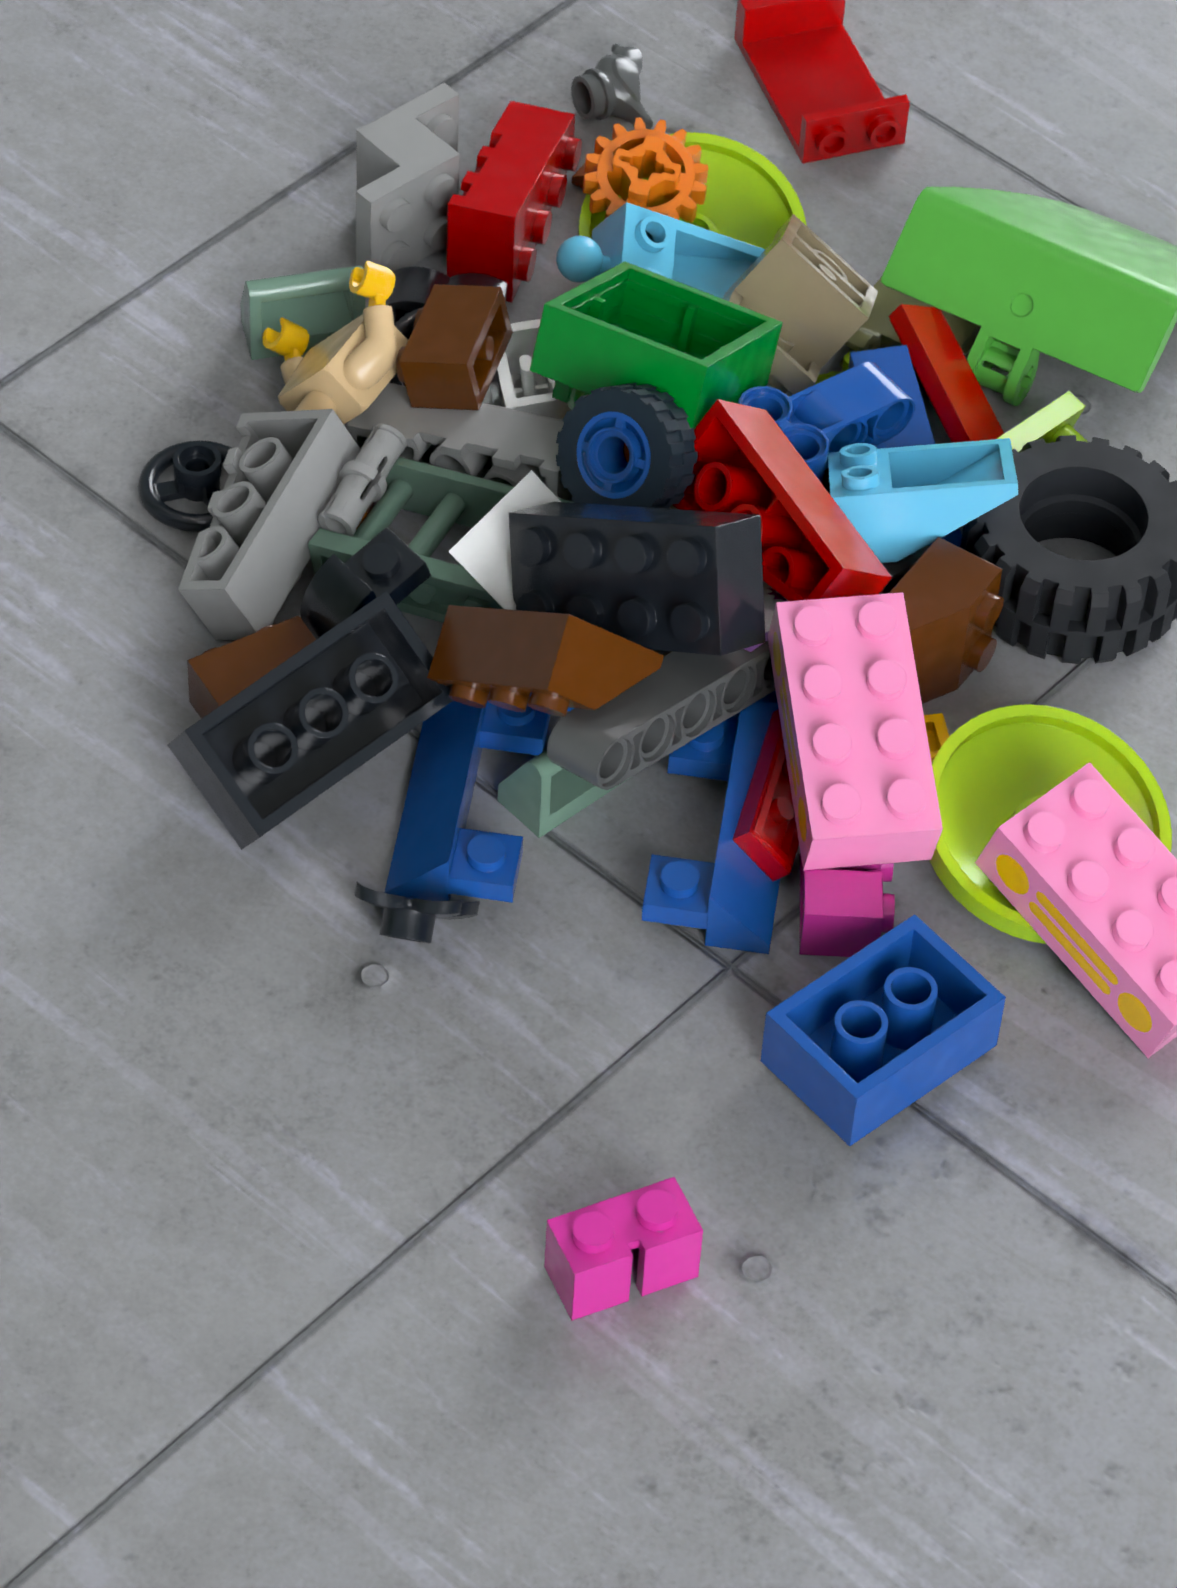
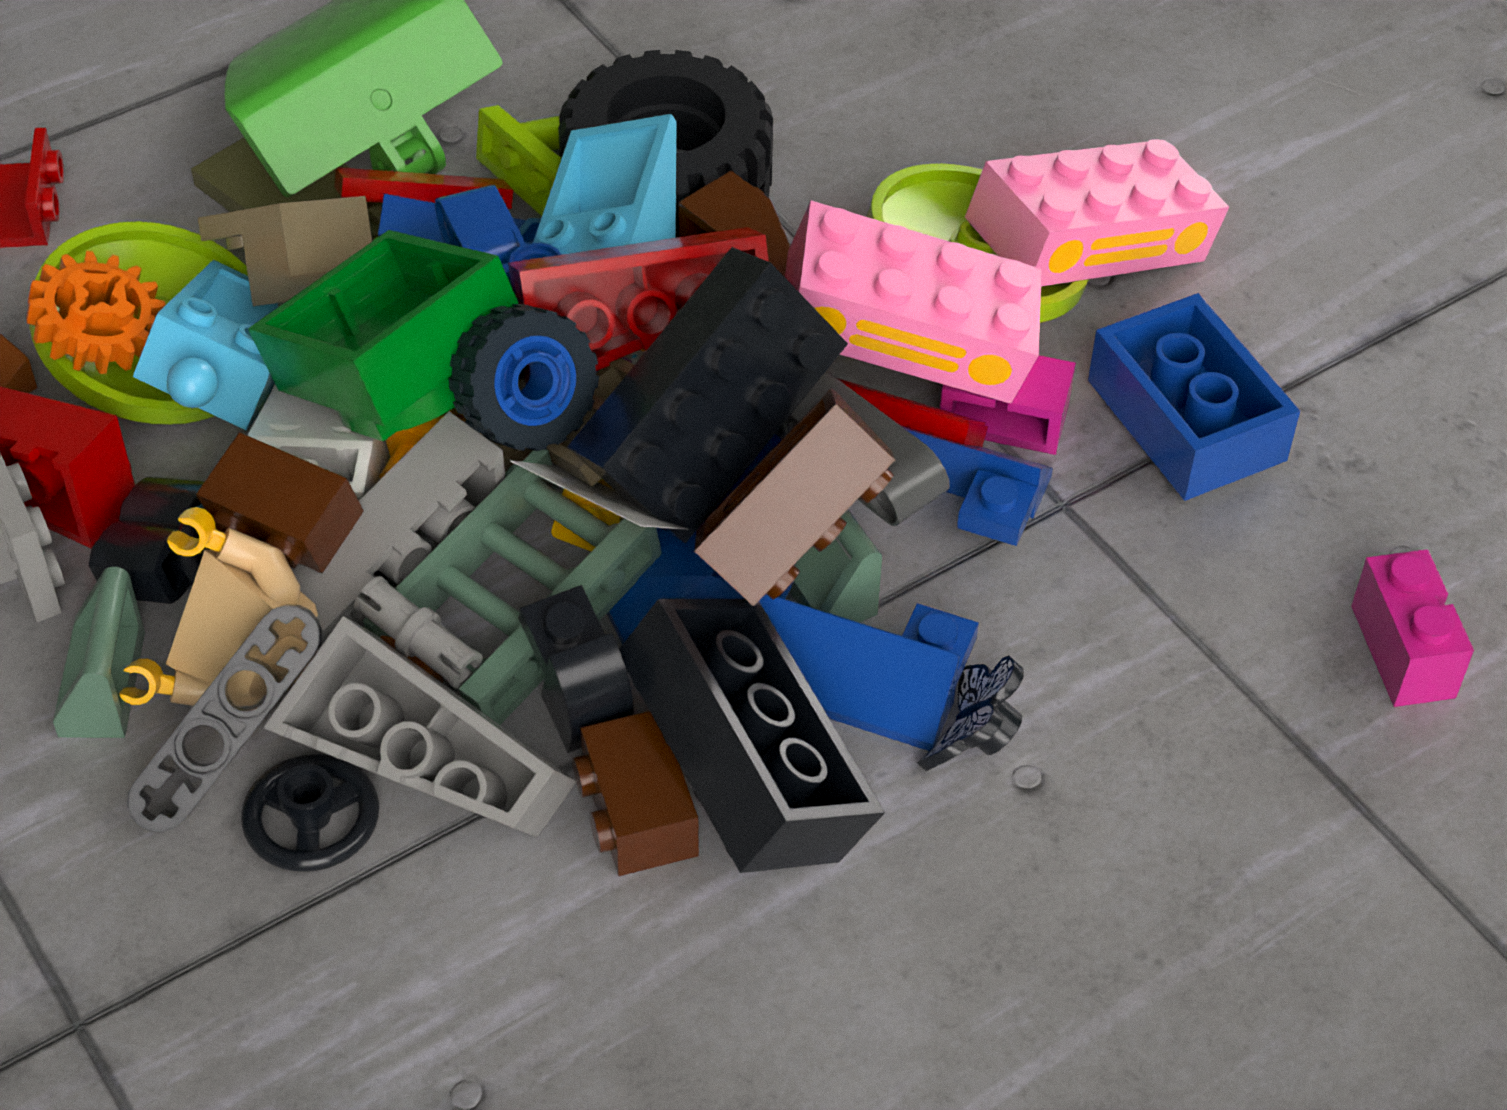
camera: 75 degrees left, 0 degrees up
(242, 373) = (219, 712): none -> beam

